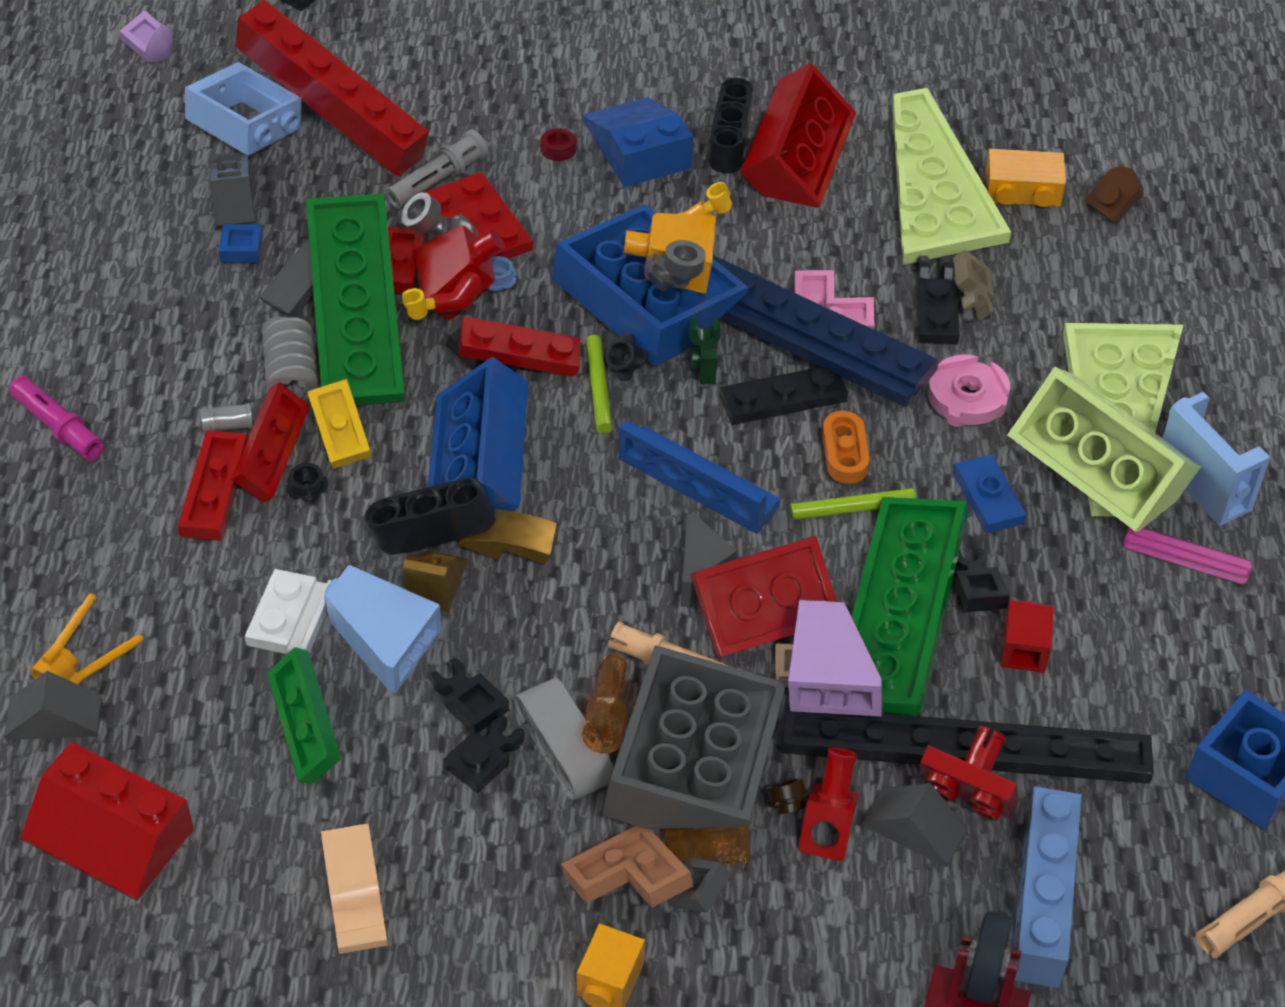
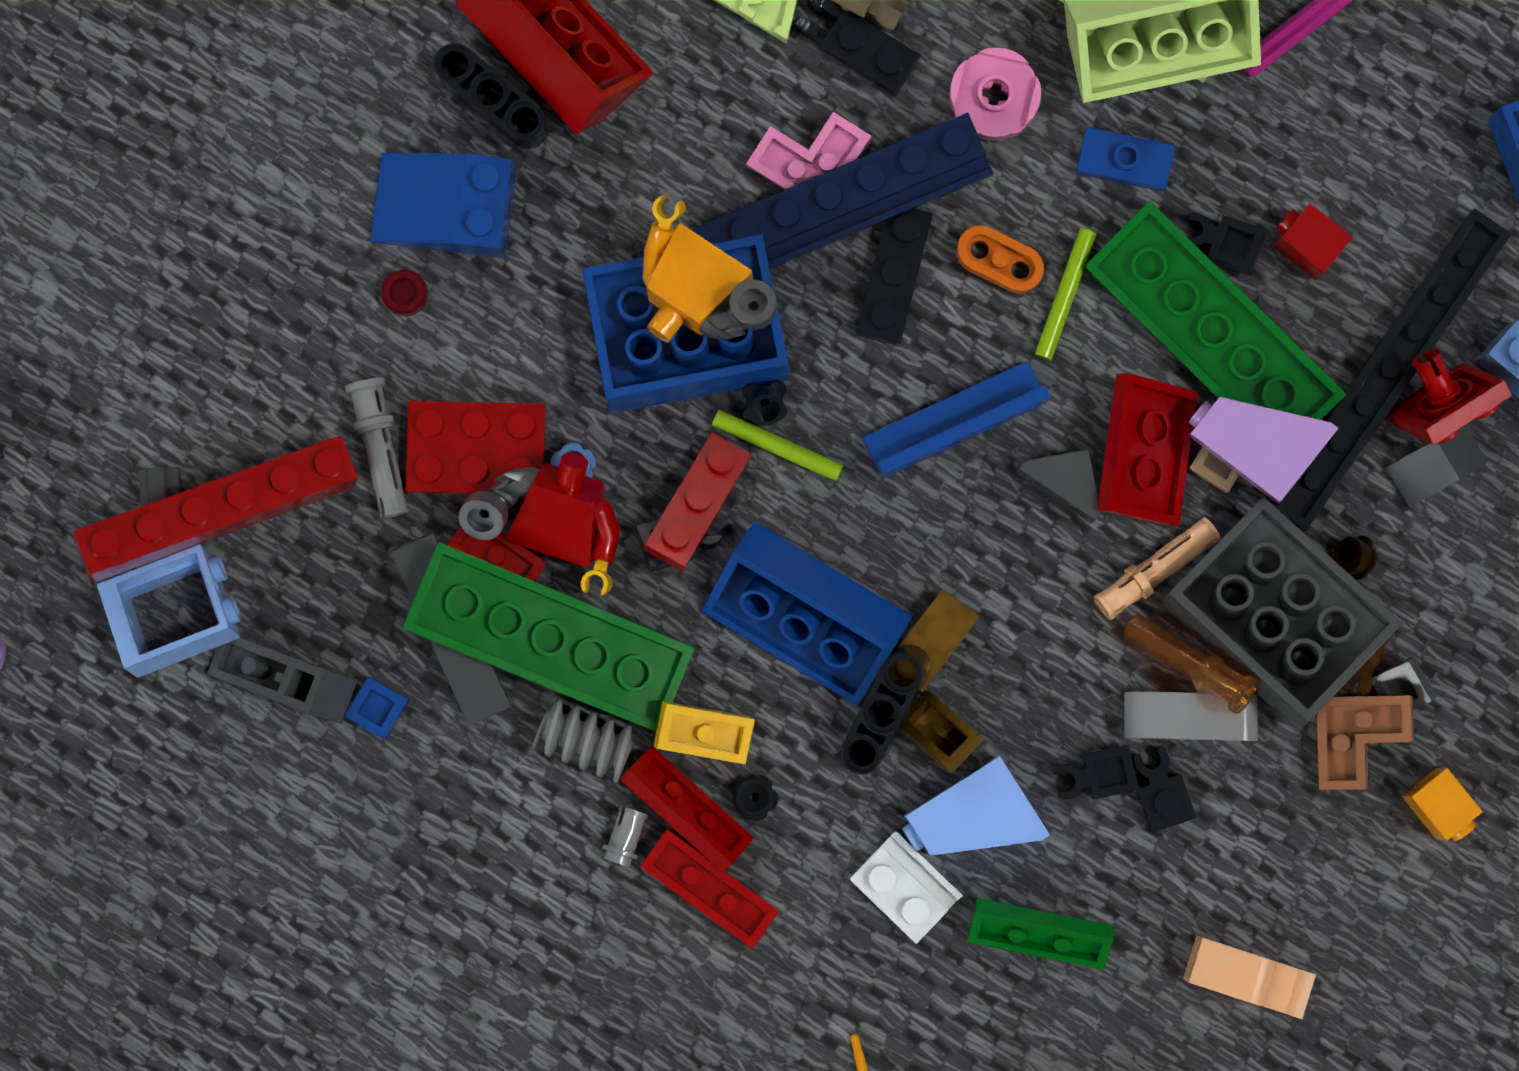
camera: 55 degrees left, 35 degrees up
(66, 426) = (531, 1003): dark pink pin -> none
(705, 352) = (812, 323): dark green plate -> none
(832, 803) = (1390, 527): red bracket -> none

